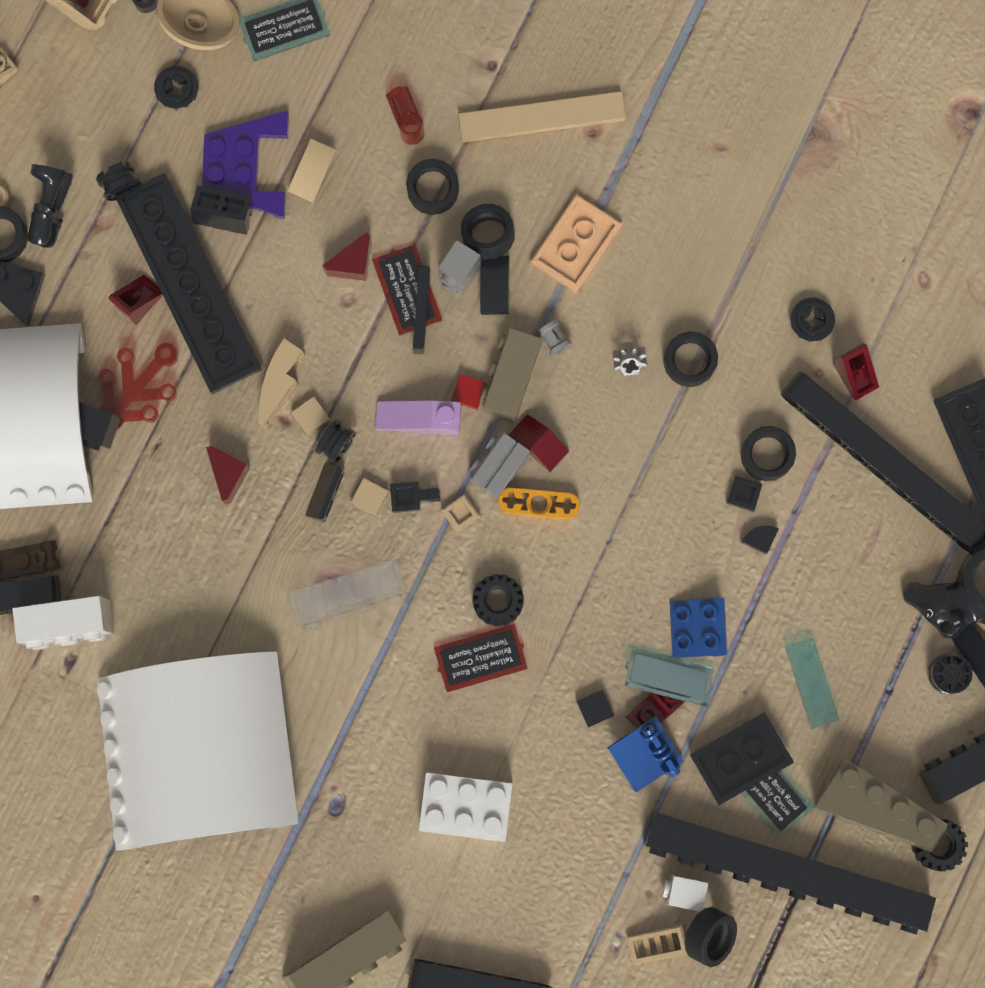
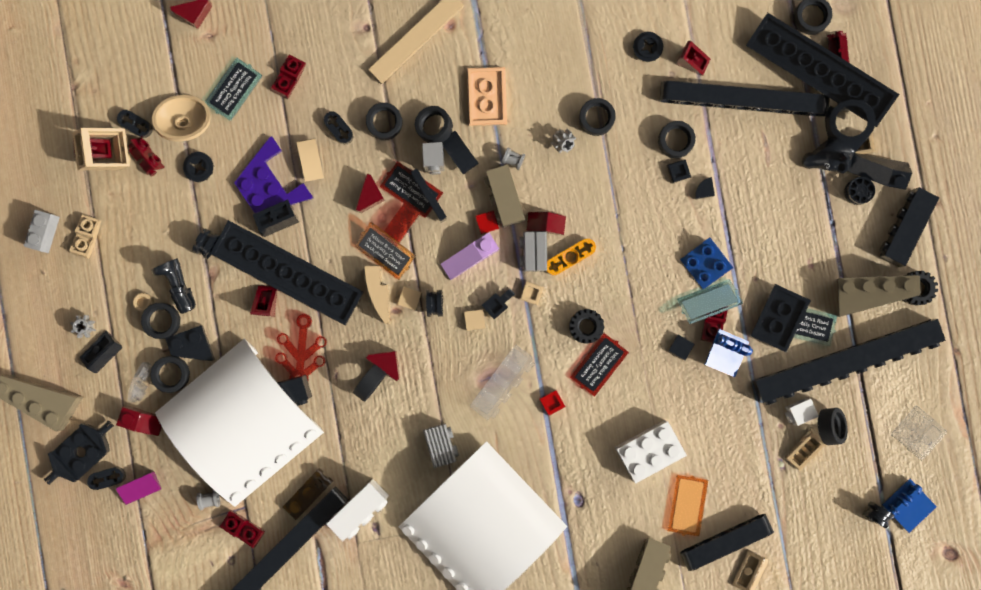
camera: 35 degrees left, 5 degrees up
(124, 20) = (141, 149): none -> dark red hinge
(188, 480) = (369, 382): none -> black tyre
(218, 617) = (440, 445): none -> light grey brick
(322, 338) = (385, 250): none -> piece
(325, 492) = (448, 335): black slope -> none
(359, 57) = (288, 77): none -> dark red slope
(363, 320) = (402, 222): none -> clear red slope
(379, 157) = (335, 130): none -> black beam
(390, 663) = (552, 402): none -> red tile
(405, 114) = (339, 90): clear red piece -> none
(465, 908) = (688, 505): none -> clear orange piece
(812, 683) = (788, 249): clear light blue tile -> none

